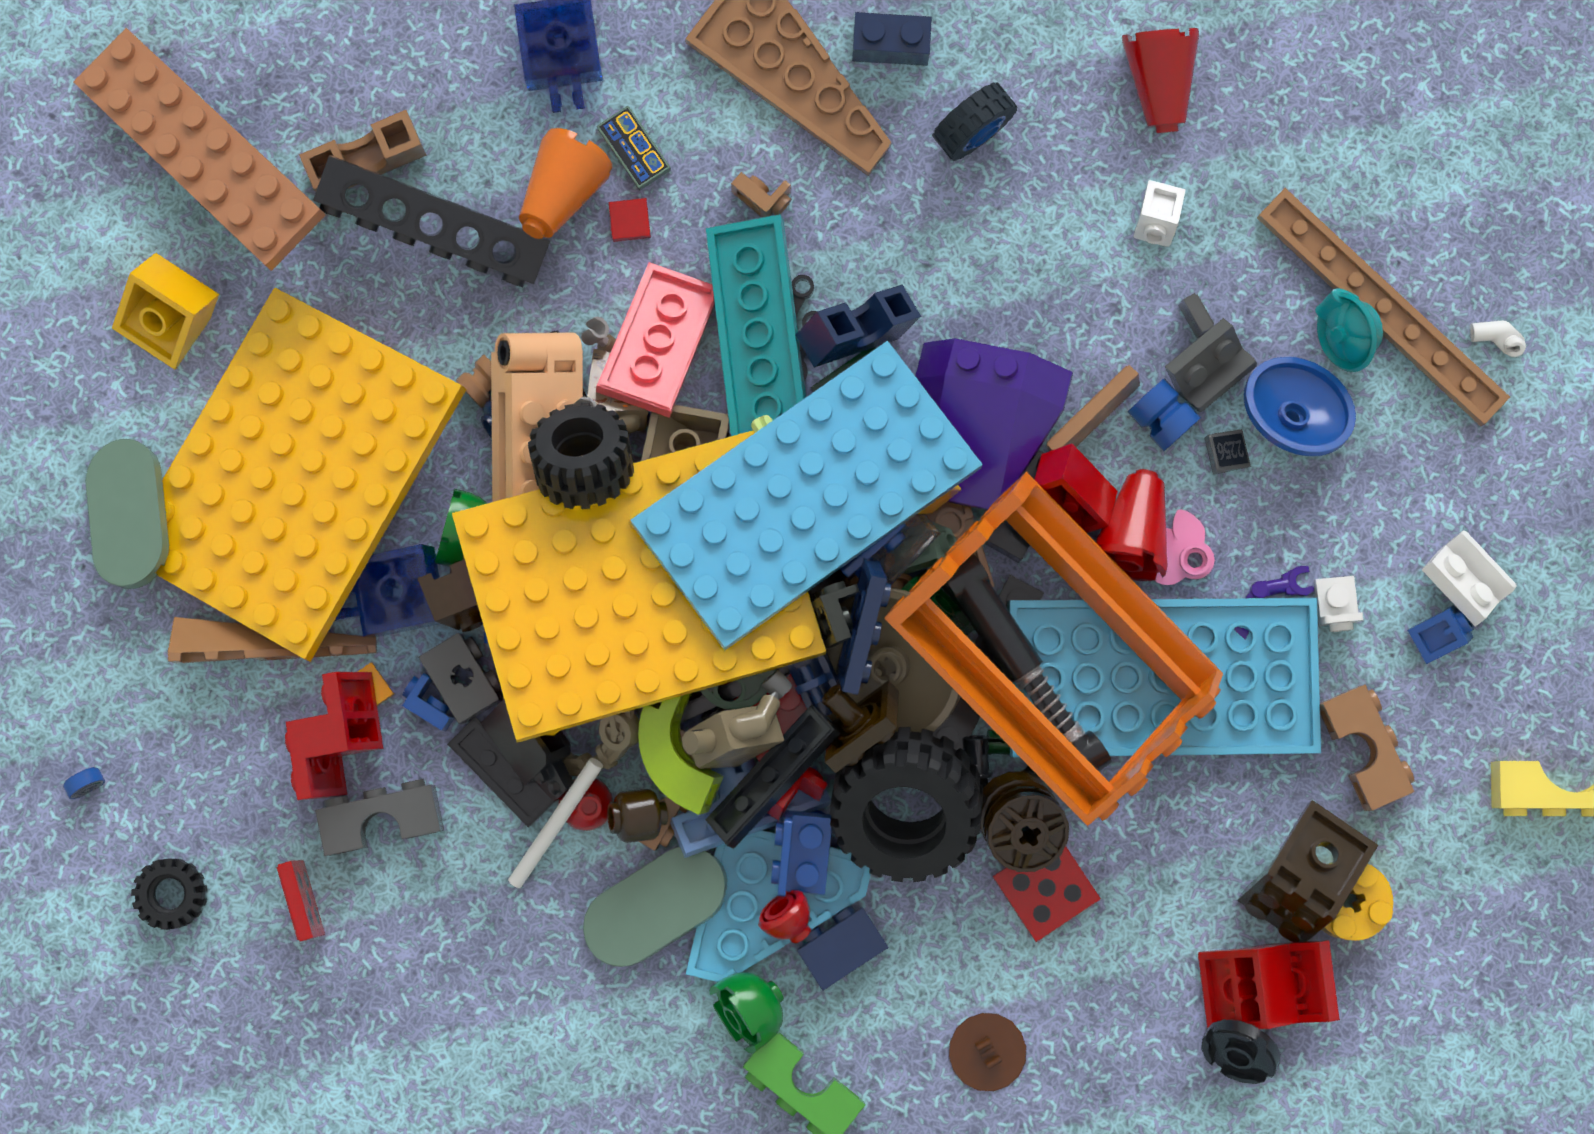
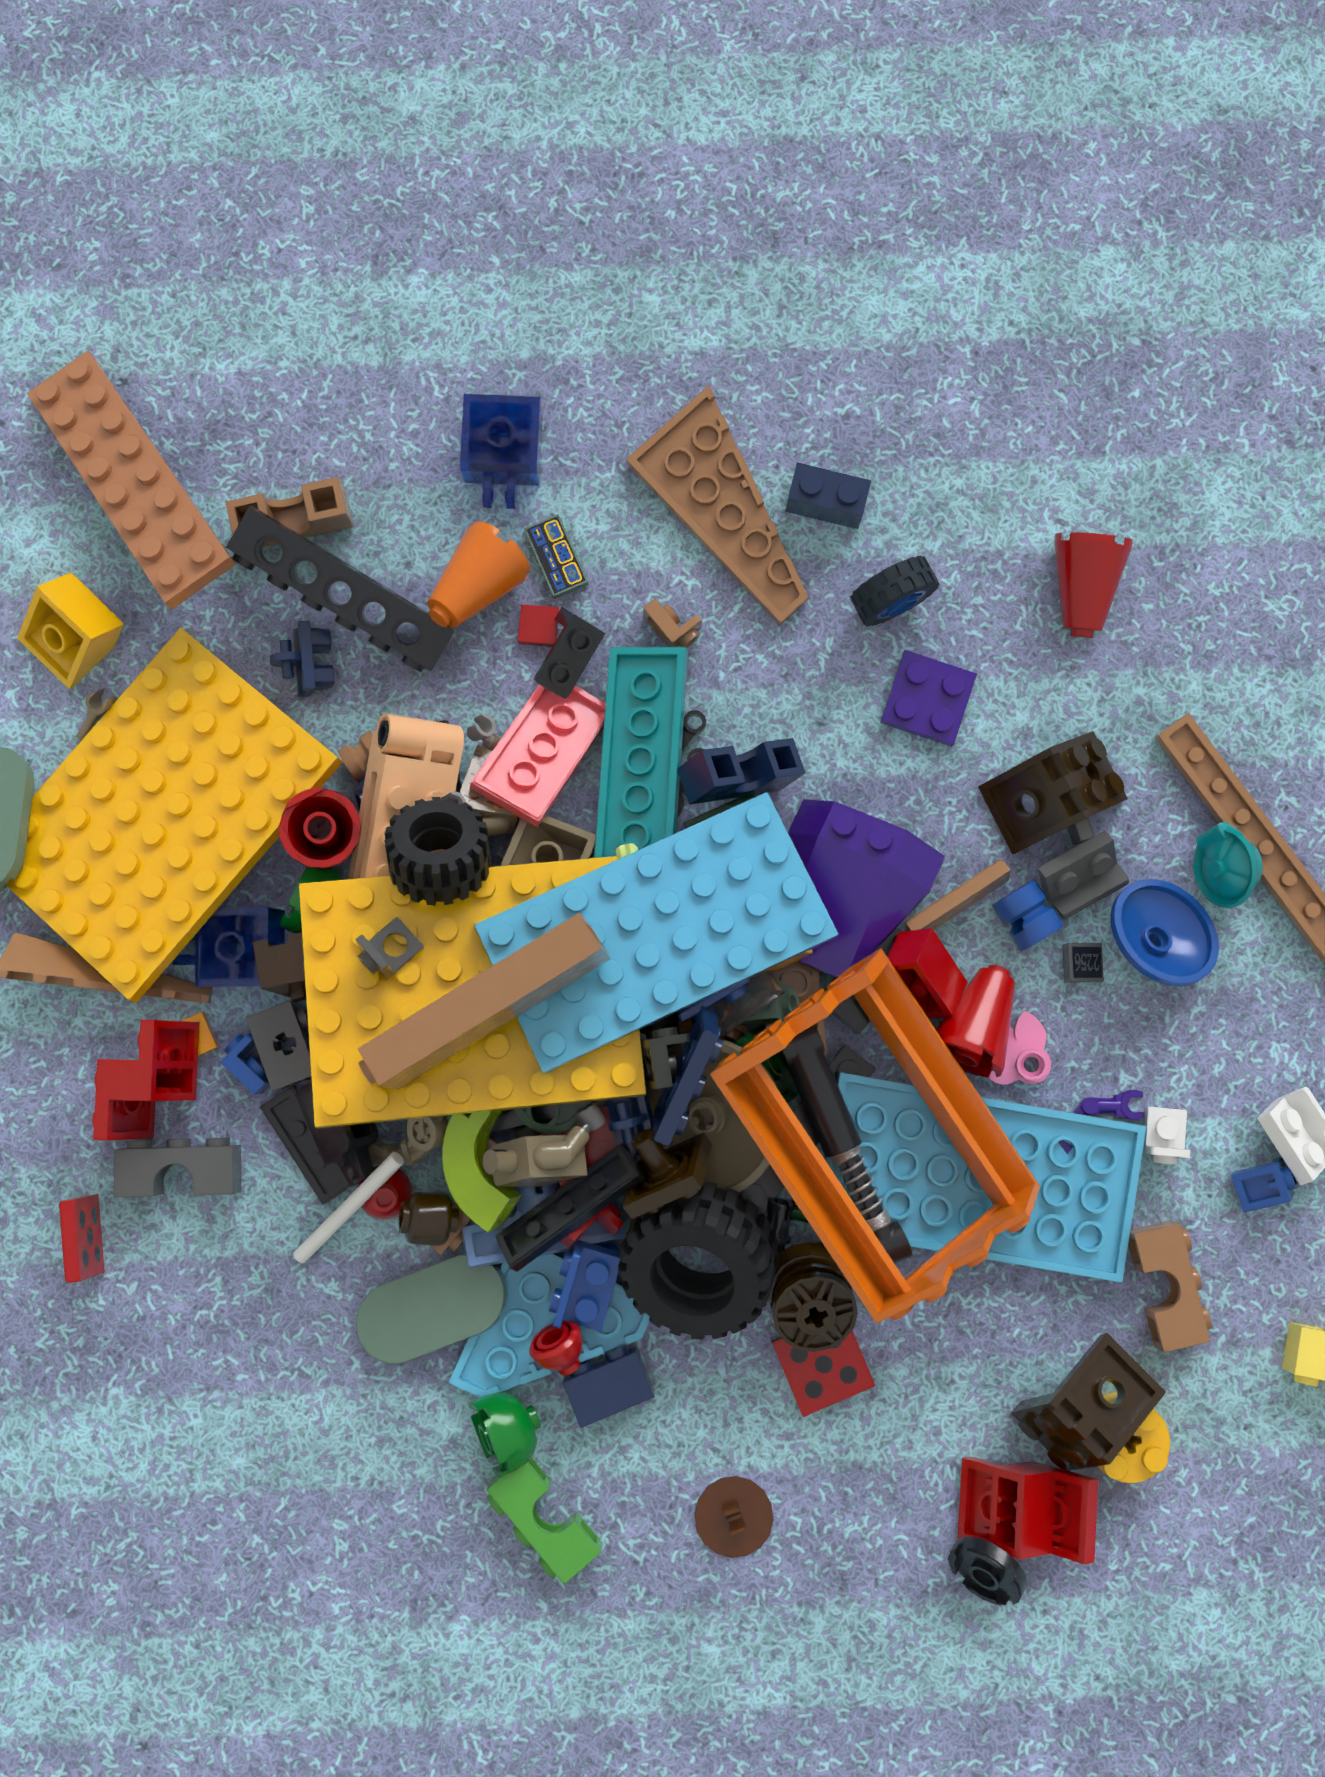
camera: 15 degrees right, 0 degrees up
(206, 384) = (95, 708): none -> dark tan hand
(402, 280) = (306, 642): none -> dark blue hips
(460, 456) = (319, 828): none -> red cone
(544, 571) = (374, 956): none -> dark grey bracket
(658, 589) = (482, 1004): none -> medium nougat brick
(667, 242) = (568, 654): none -> black bracket
(1028, 220) = (928, 698): none -> dark purple plate
(1159, 213) = (1059, 714): white bracket -> none
(1178, 282) = (1066, 786): none -> dark brown bracket

